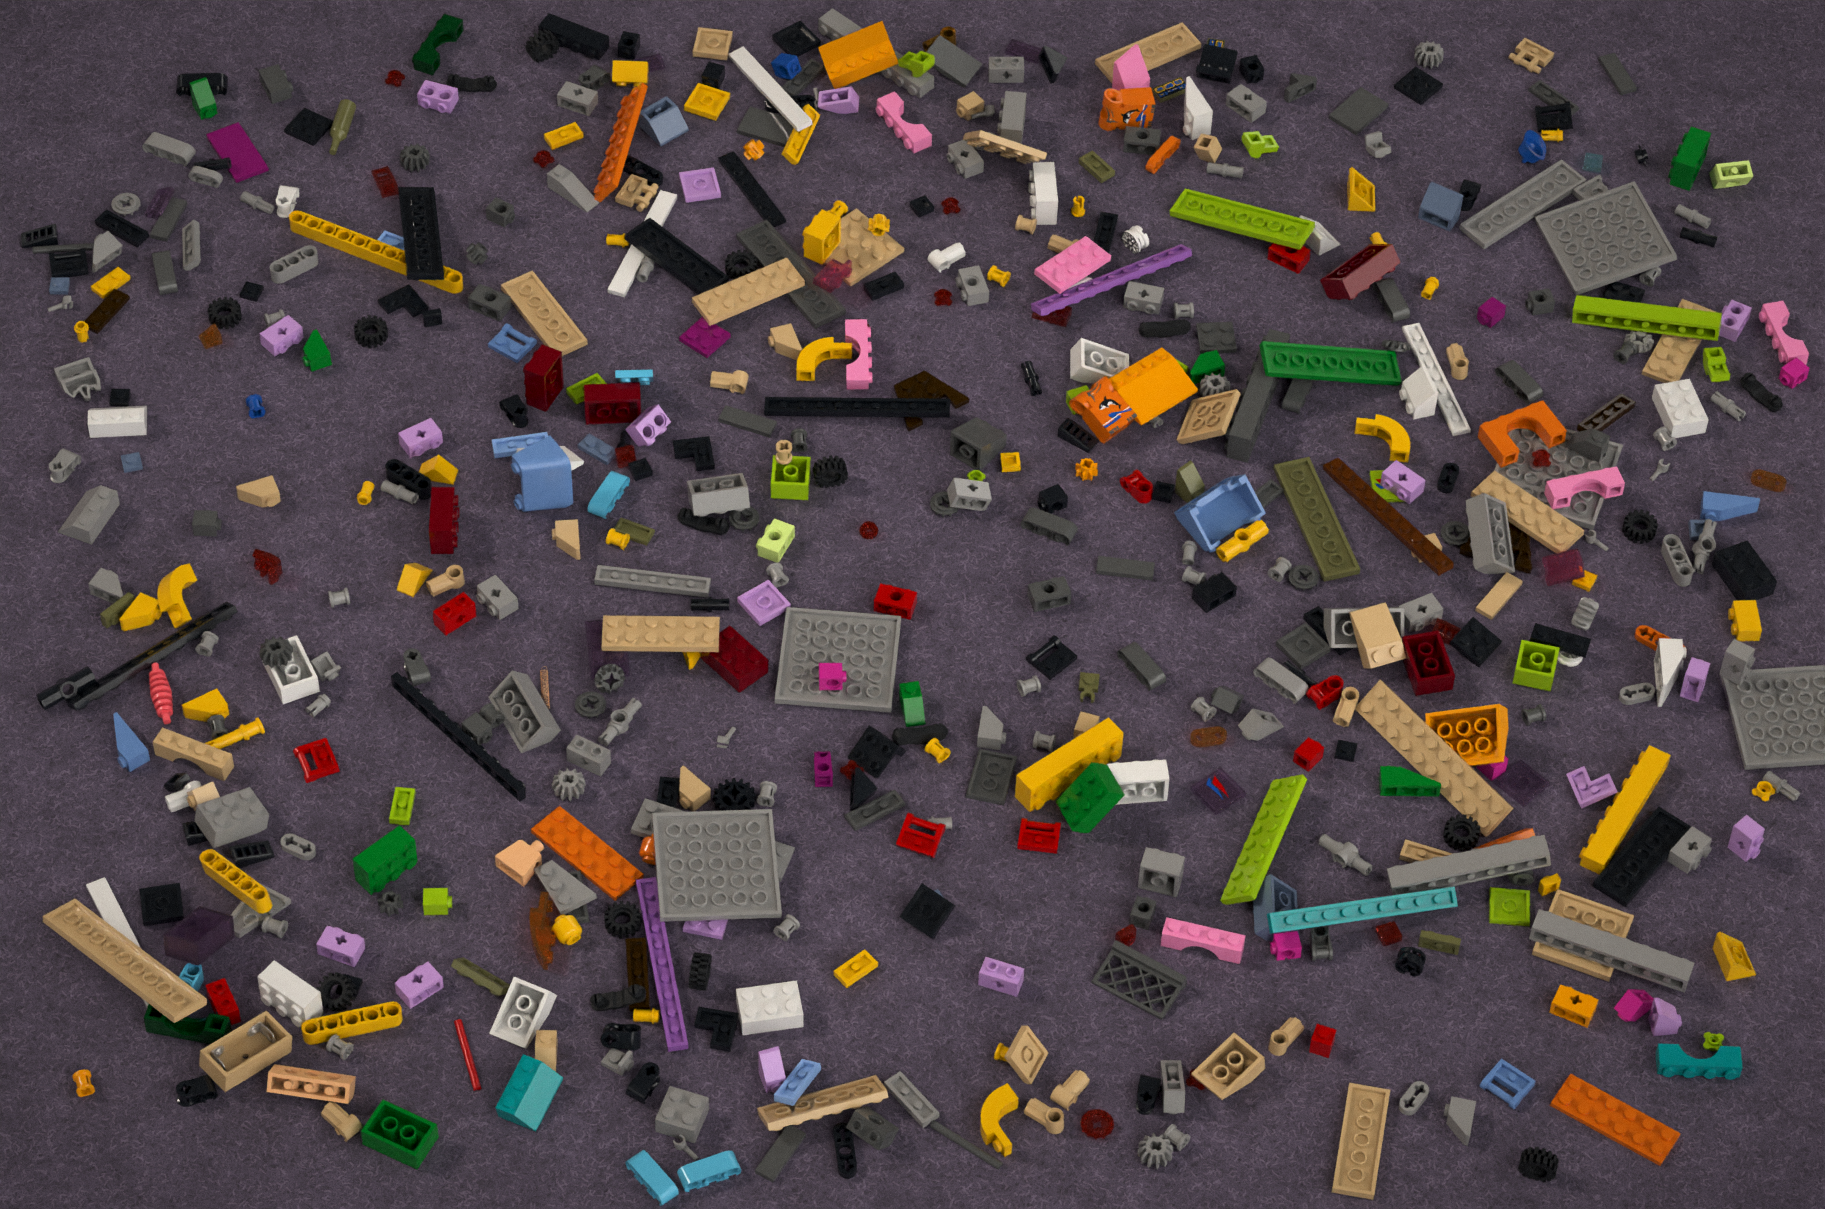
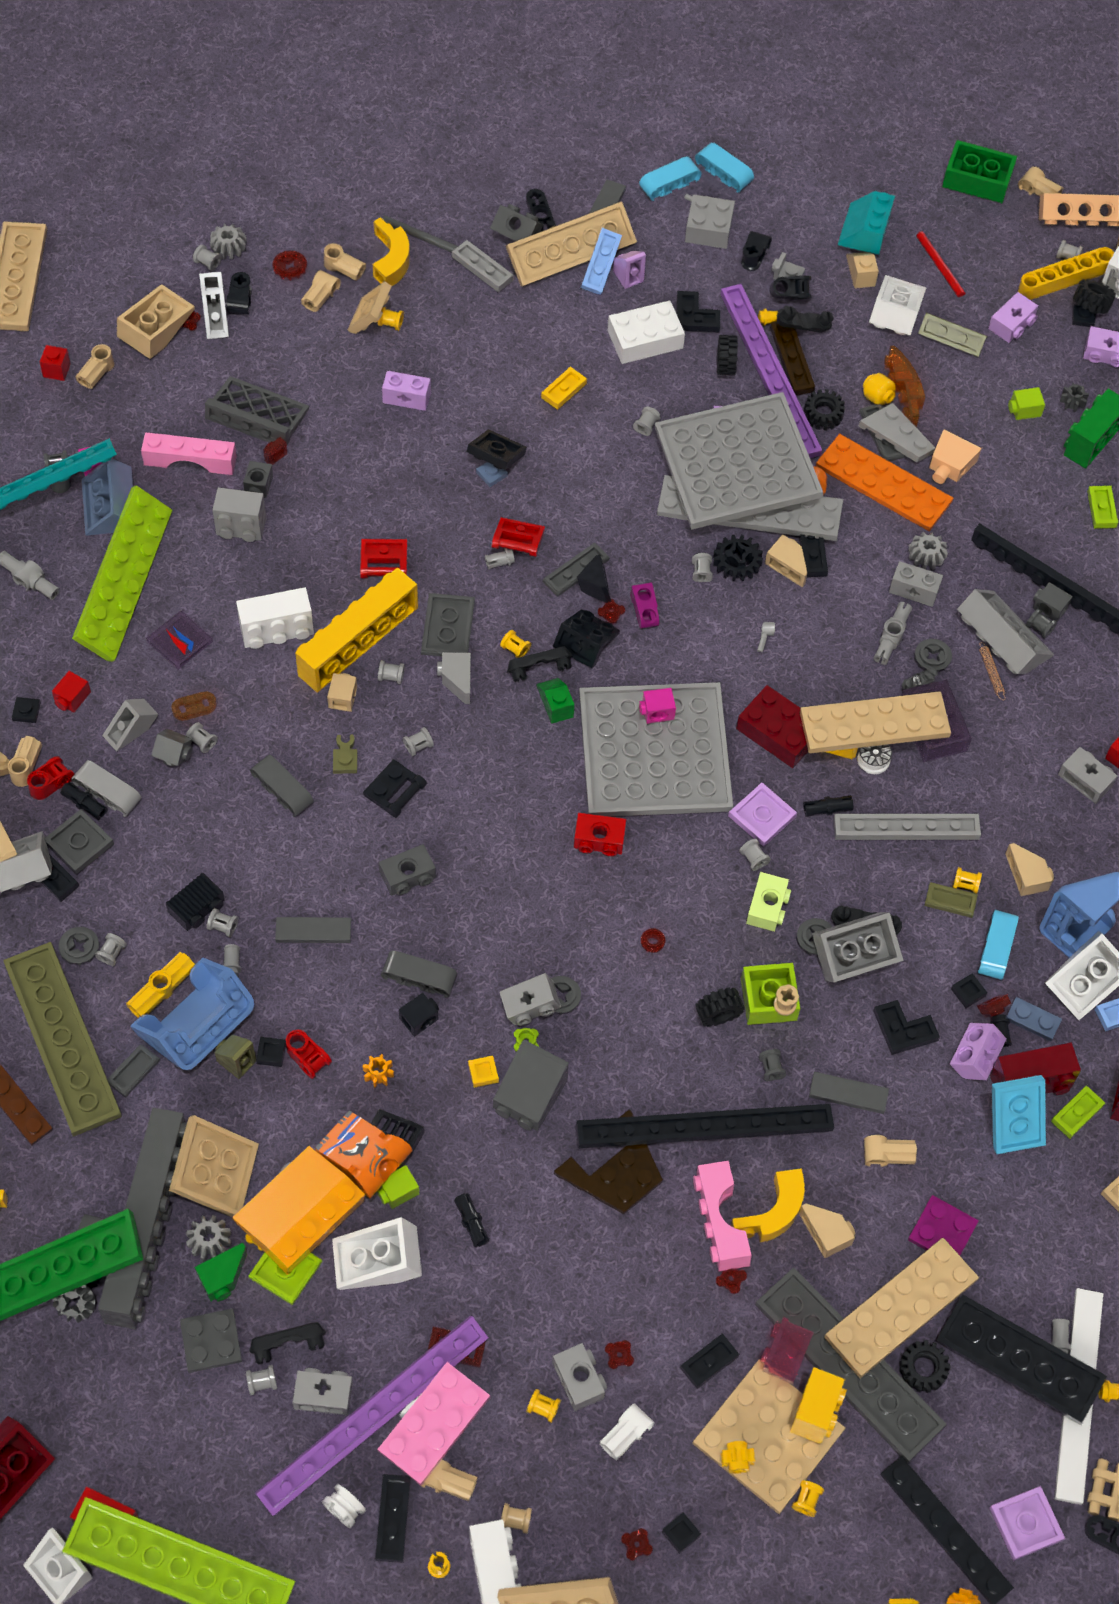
camera: 170 degrees right, 10 degrees up
(1090, 798) = (327, 577): green brick -> none

